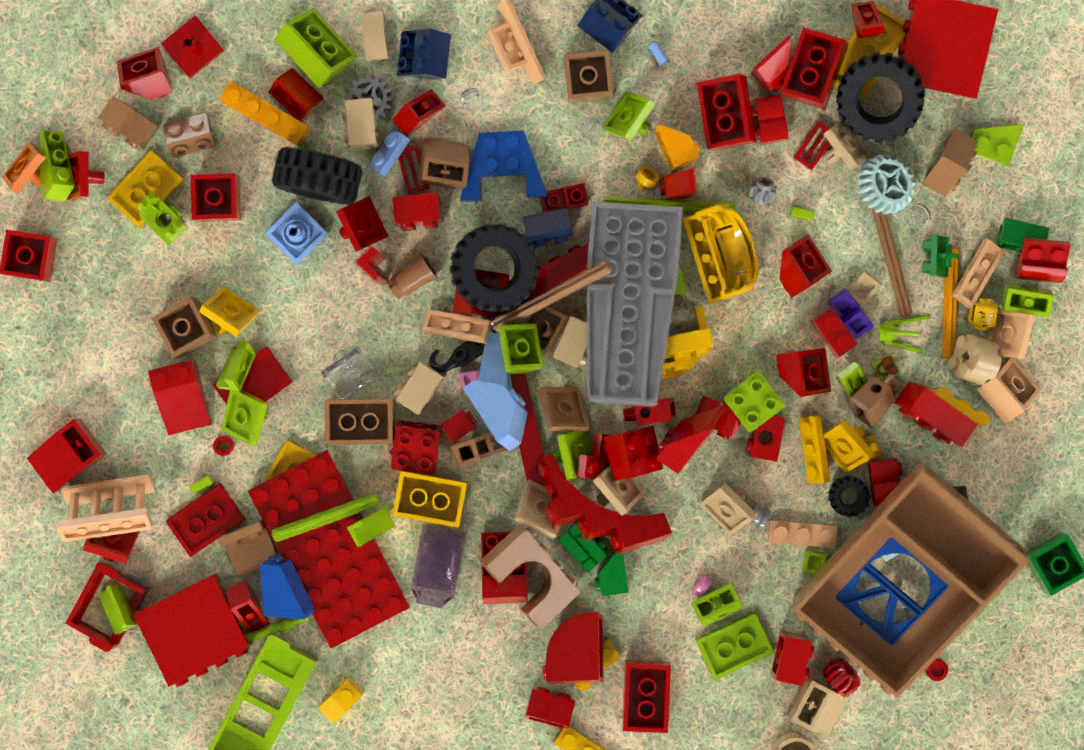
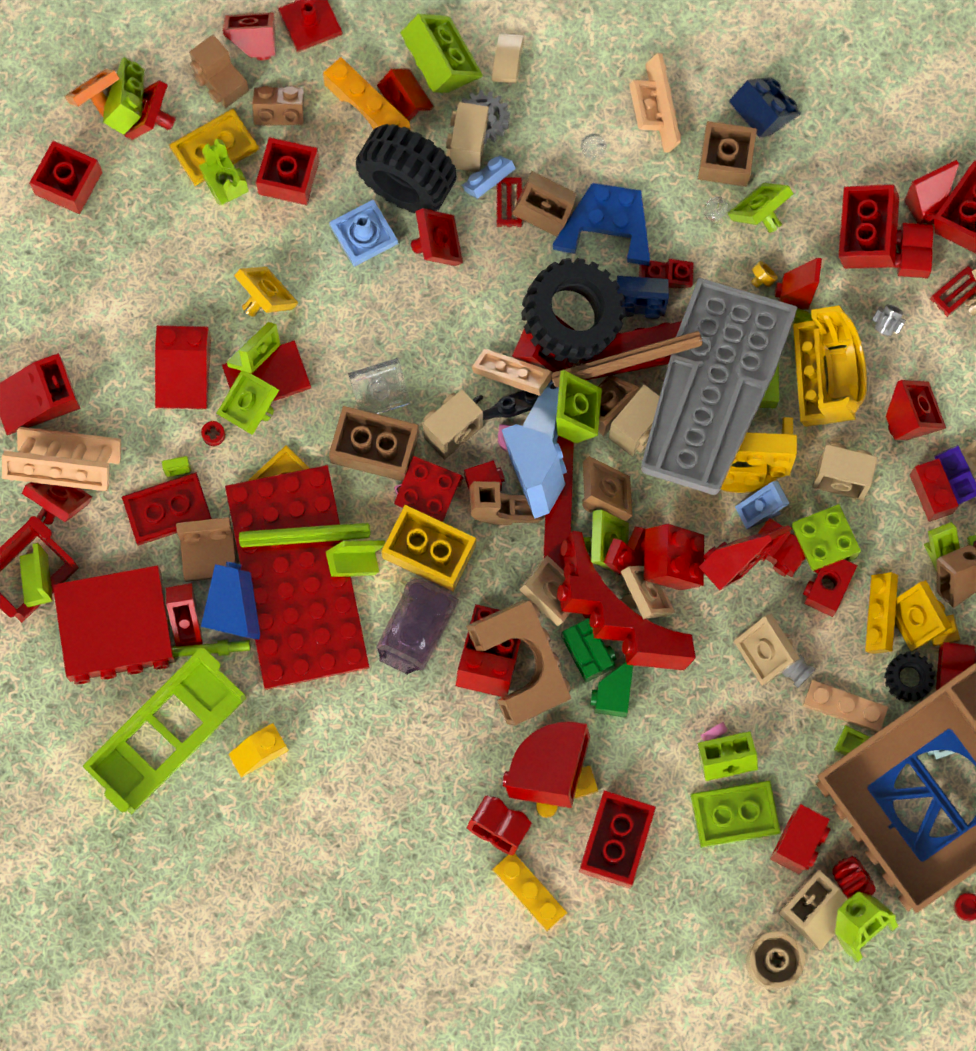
camera: 10 degrees right, 15 degrees down
(184, 327) = (211, 294): medium nougat brick -> none
(369, 261) = (439, 272): red fence -> none
(412, 277) = (477, 309): medium nougat plant -> none
(417, 211) = (503, 239): red brick -> none
(418, 112) = (531, 144): red slope -> none
(424, 54) = (555, 88): dark blue slope -> none
(657, 54) = (807, 152): light blue tile -> none
(661, 412) = (716, 519): red torso -> none
(677, 147) = (805, 242): light orange slope -> none
(694, 385) = (762, 505): none -> light blue slope
(756, 339) = (845, 471): none -> tan brick
(801, 213) = (927, 355): lime tile -> none
(805, 371) = (891, 522): red slope -> none
(867, 706) = (856, 930): none -> lime piece

